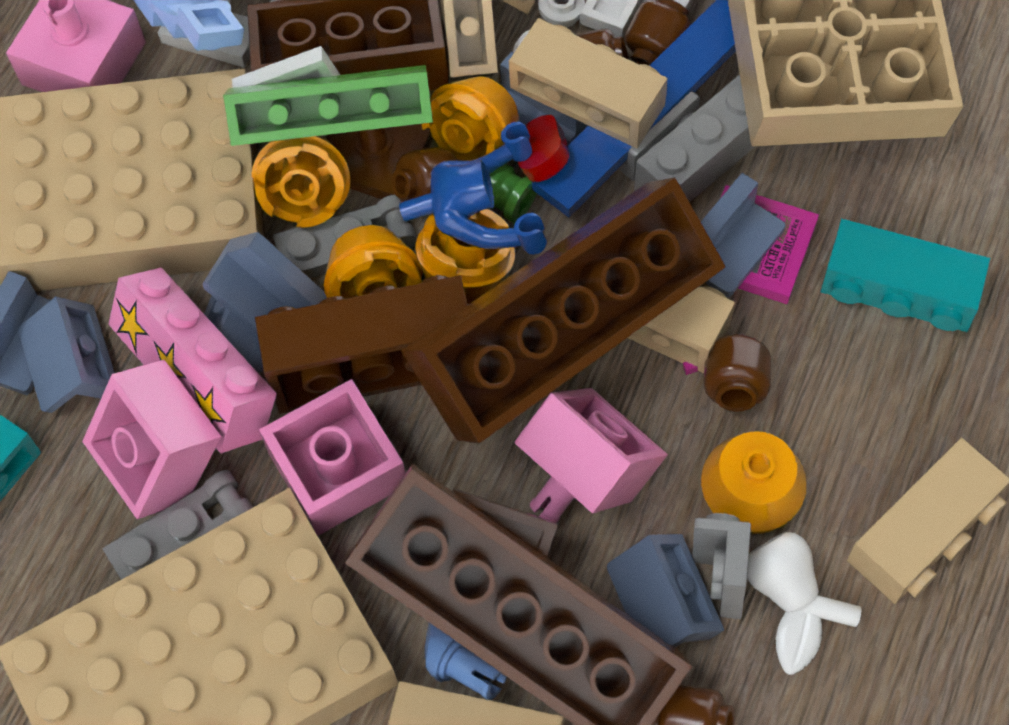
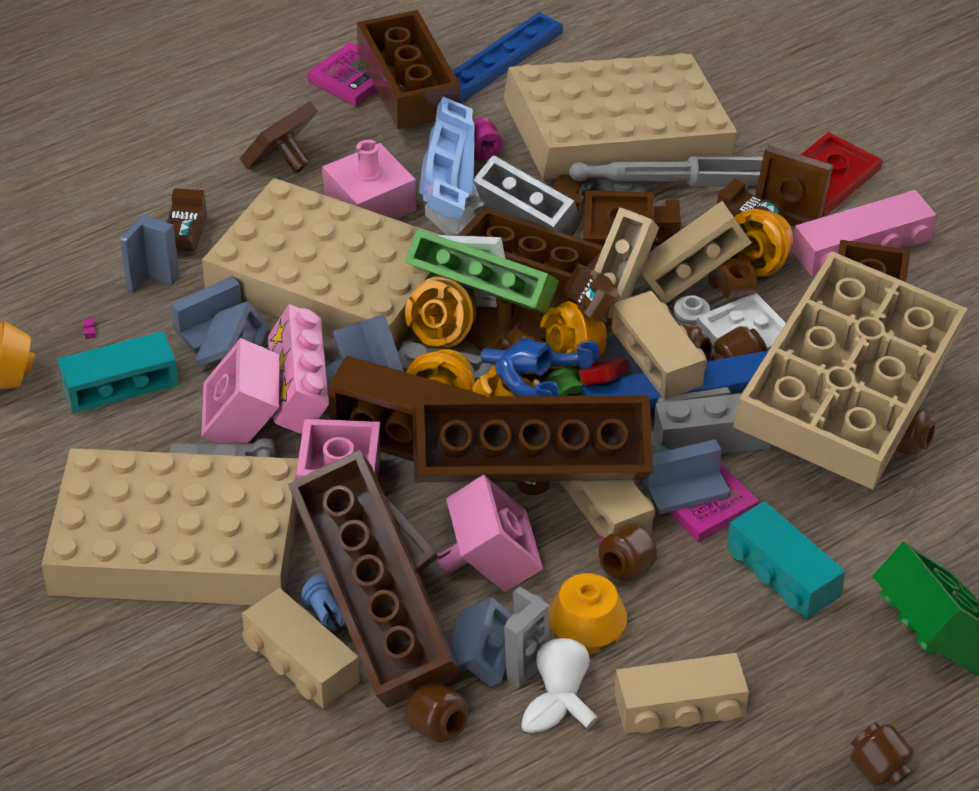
camera: 30 degrees right, 20 degrees down
(475, 60) = (591, 292): none -> reddish brown leg

